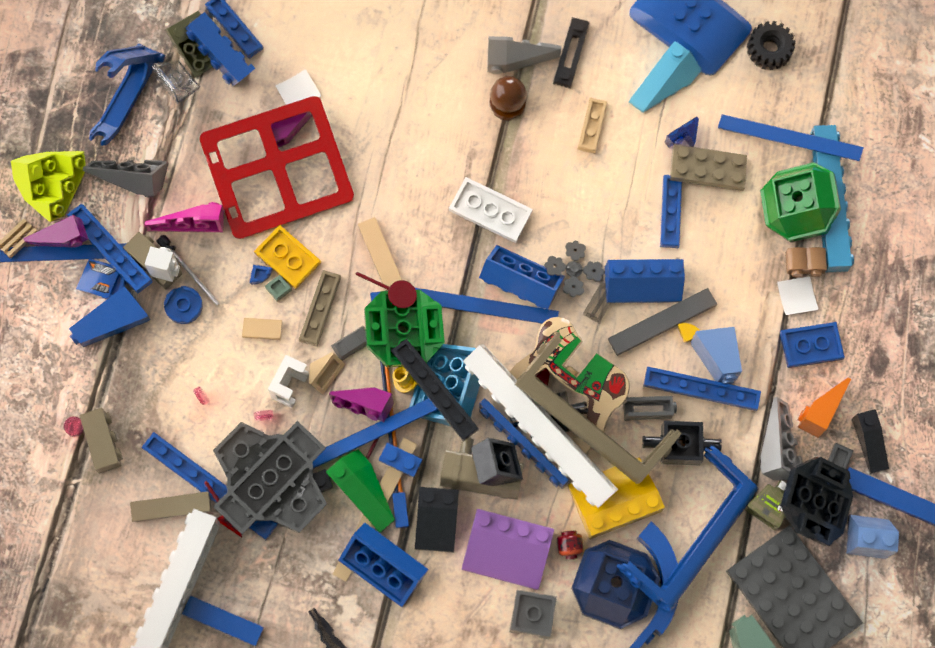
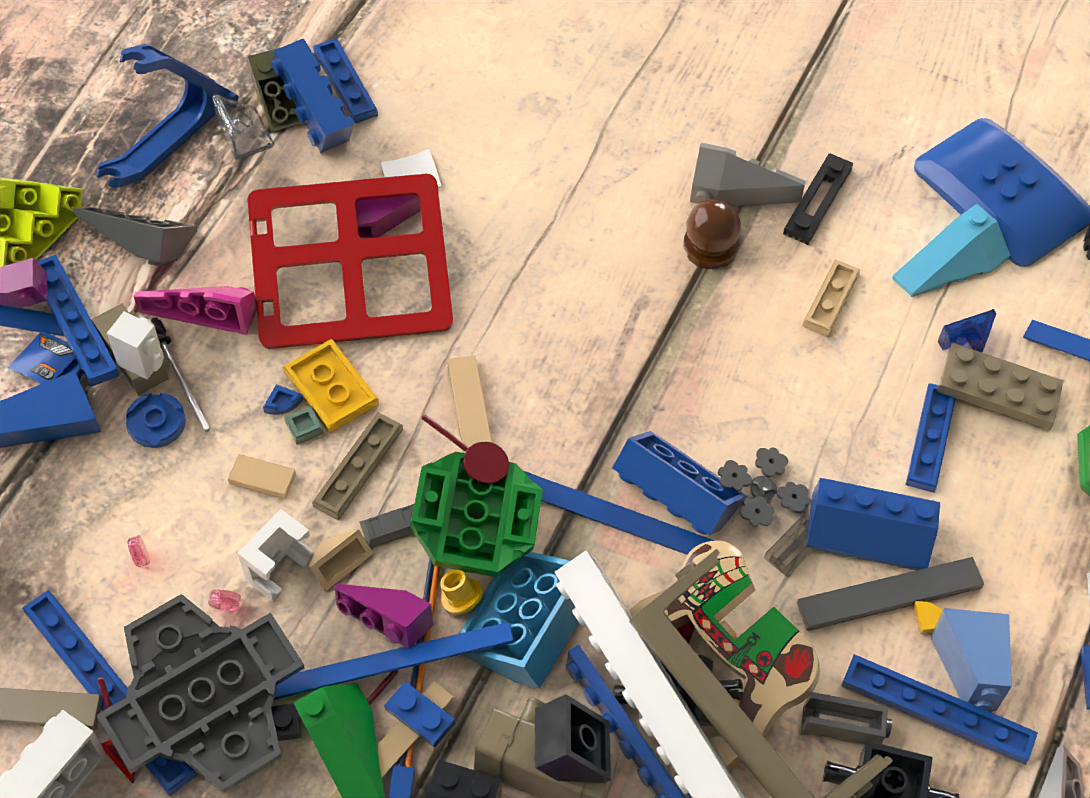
camera: 15 degrees right, 15 degrees down
(435, 390) = (501, 613): black tile -> none
(490, 210) = (652, 380): white plate -> none

